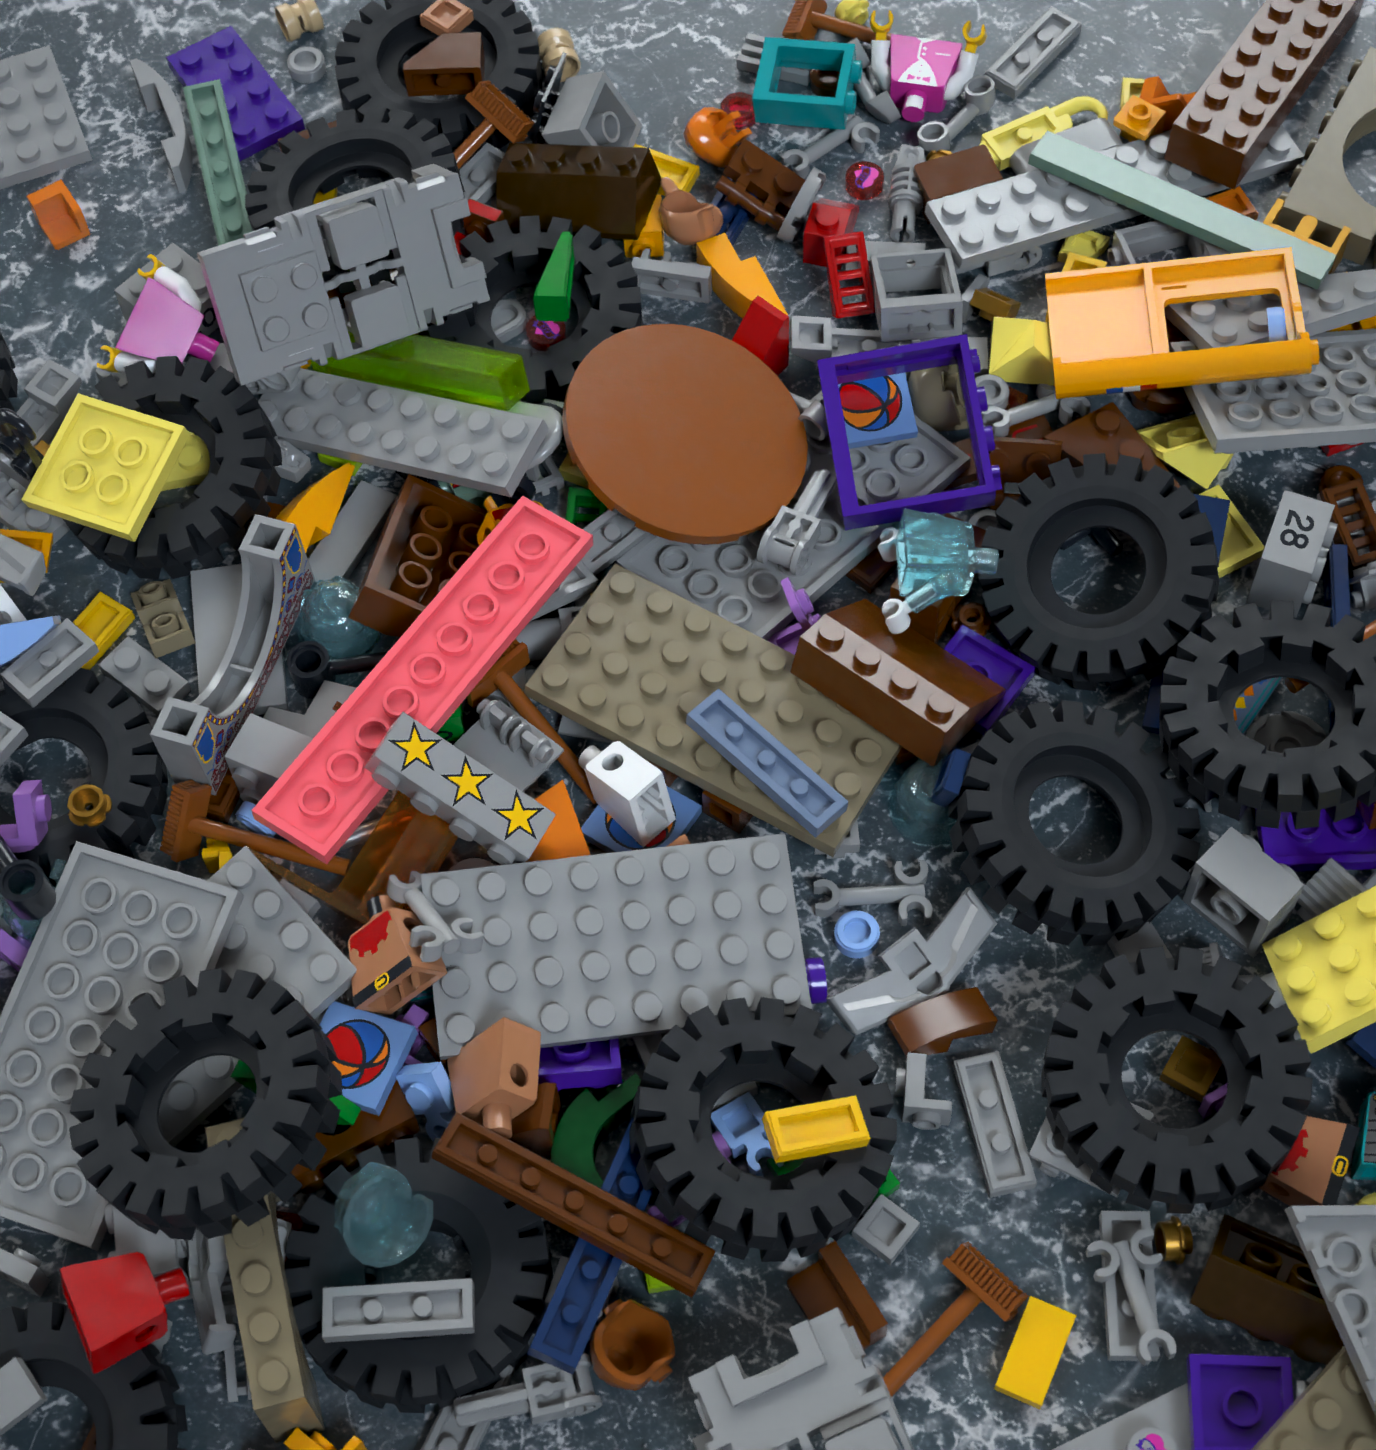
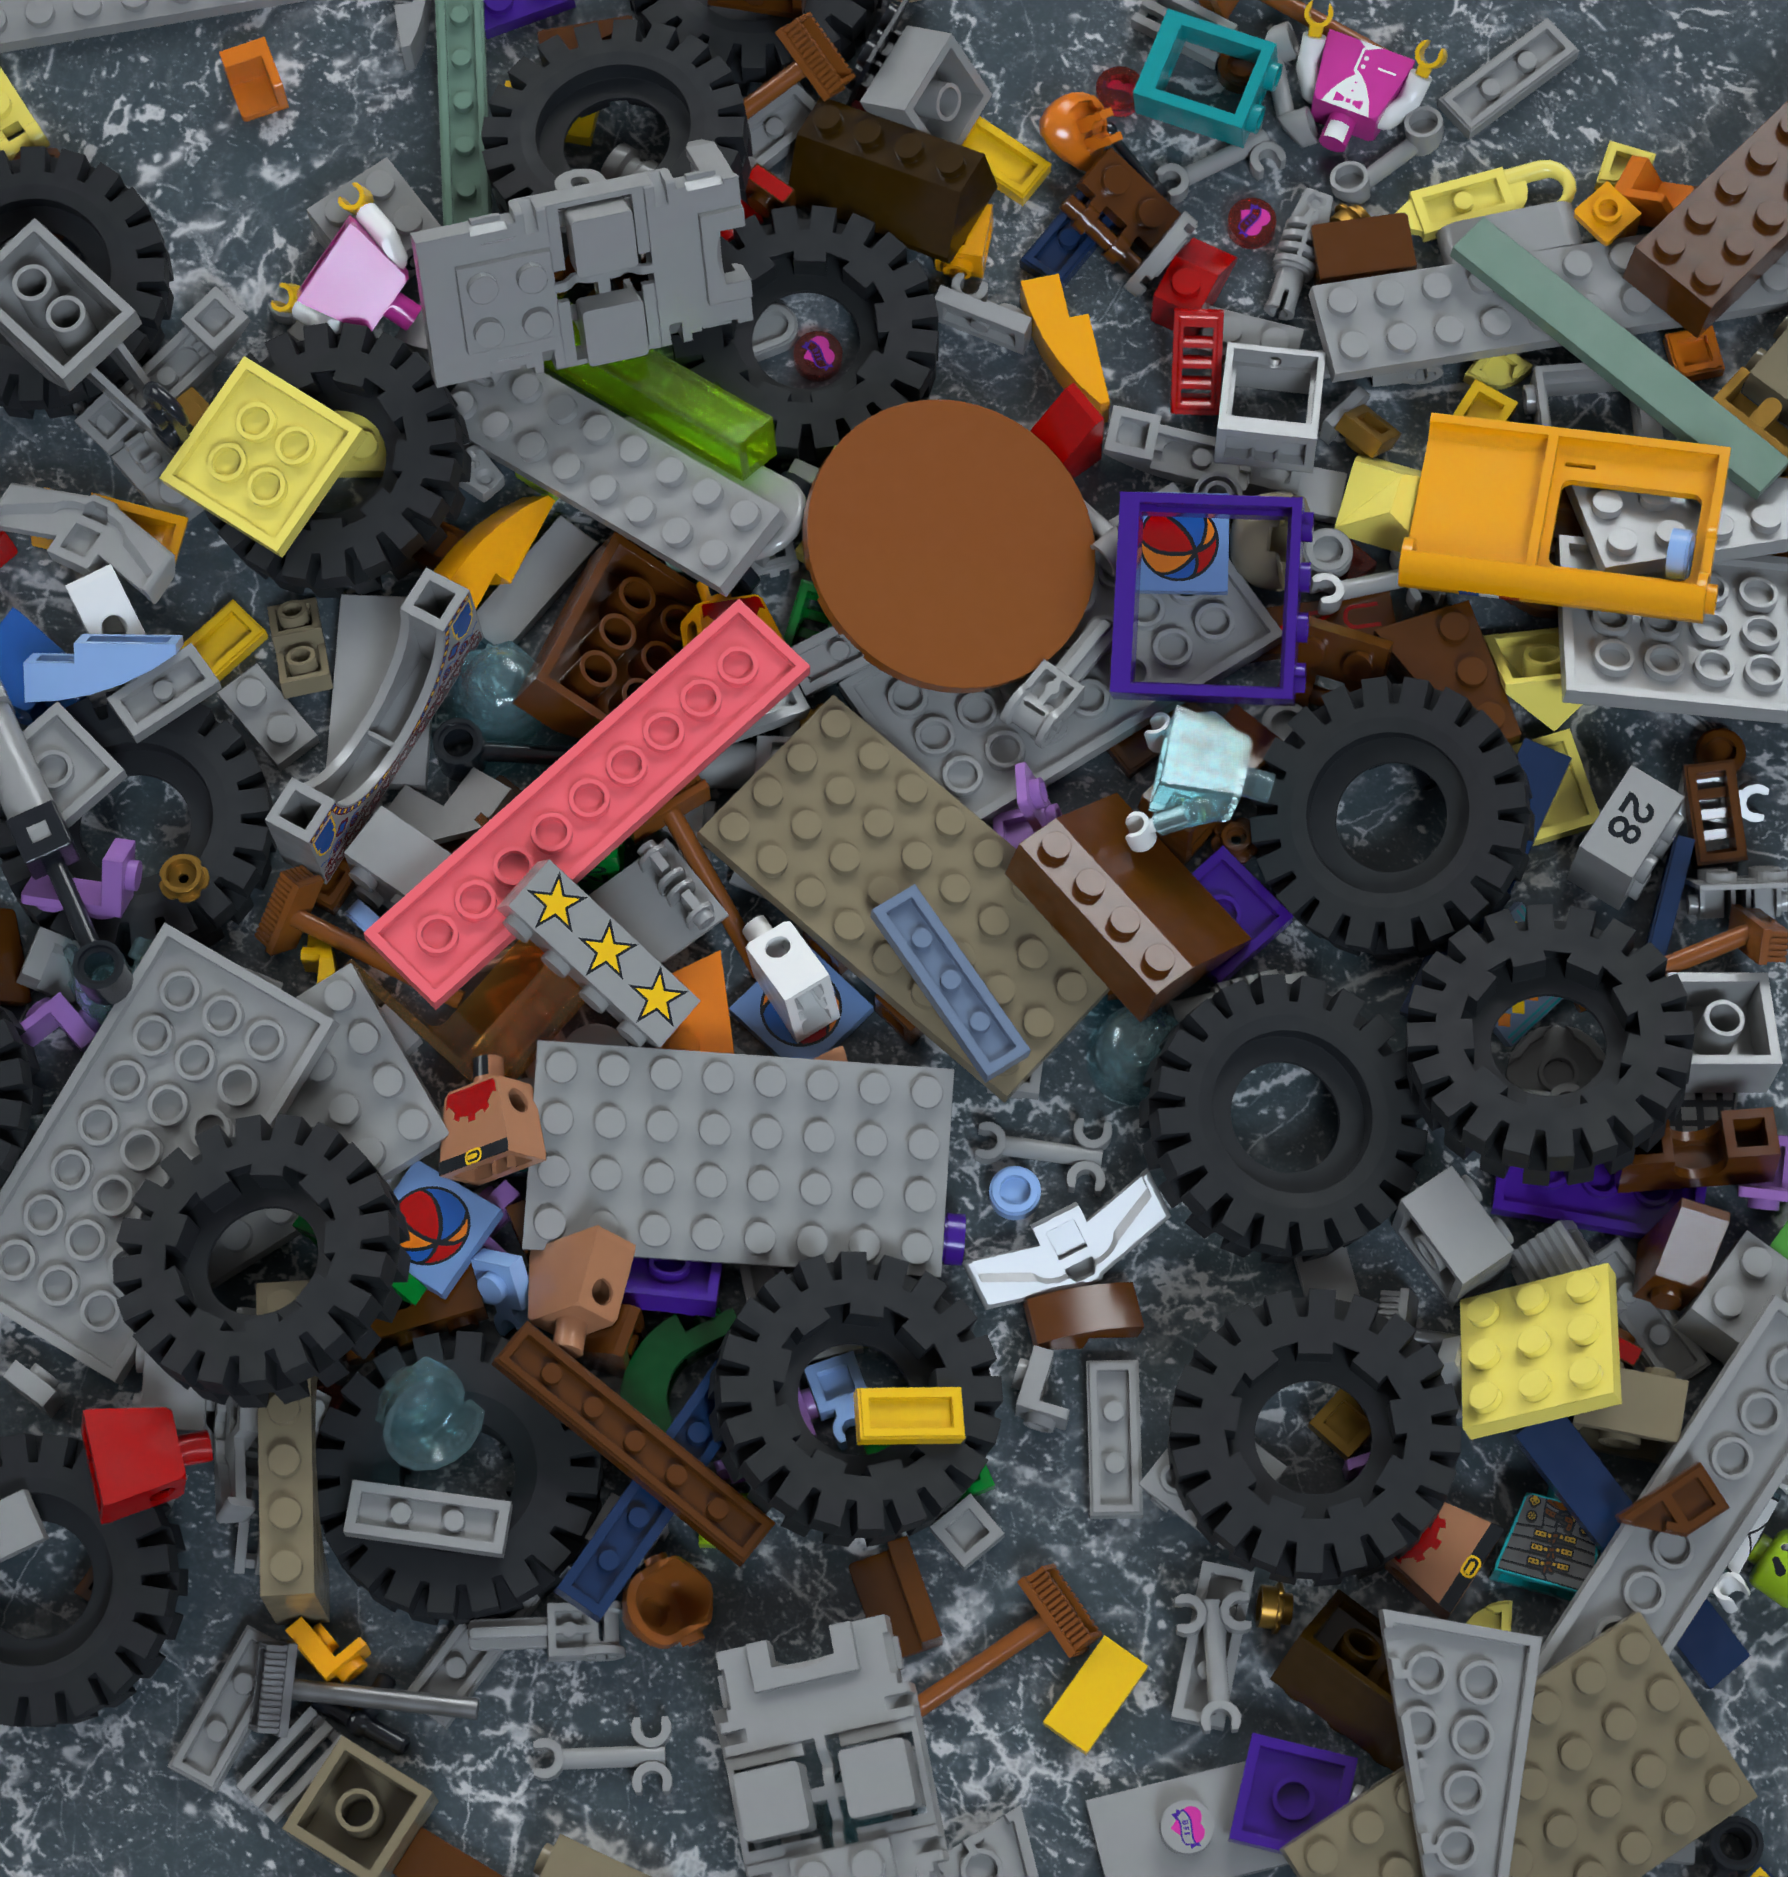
camera: 10 degrees right, 10 degrees up
(434, 933) = (542, 1117): light grey bar -> none
(554, 289) = (833, 323): green slope -> none
(685, 217) = (1017, 243): nougat hair -> none
(950, 777) = (1152, 1043): dark blue tile -> none

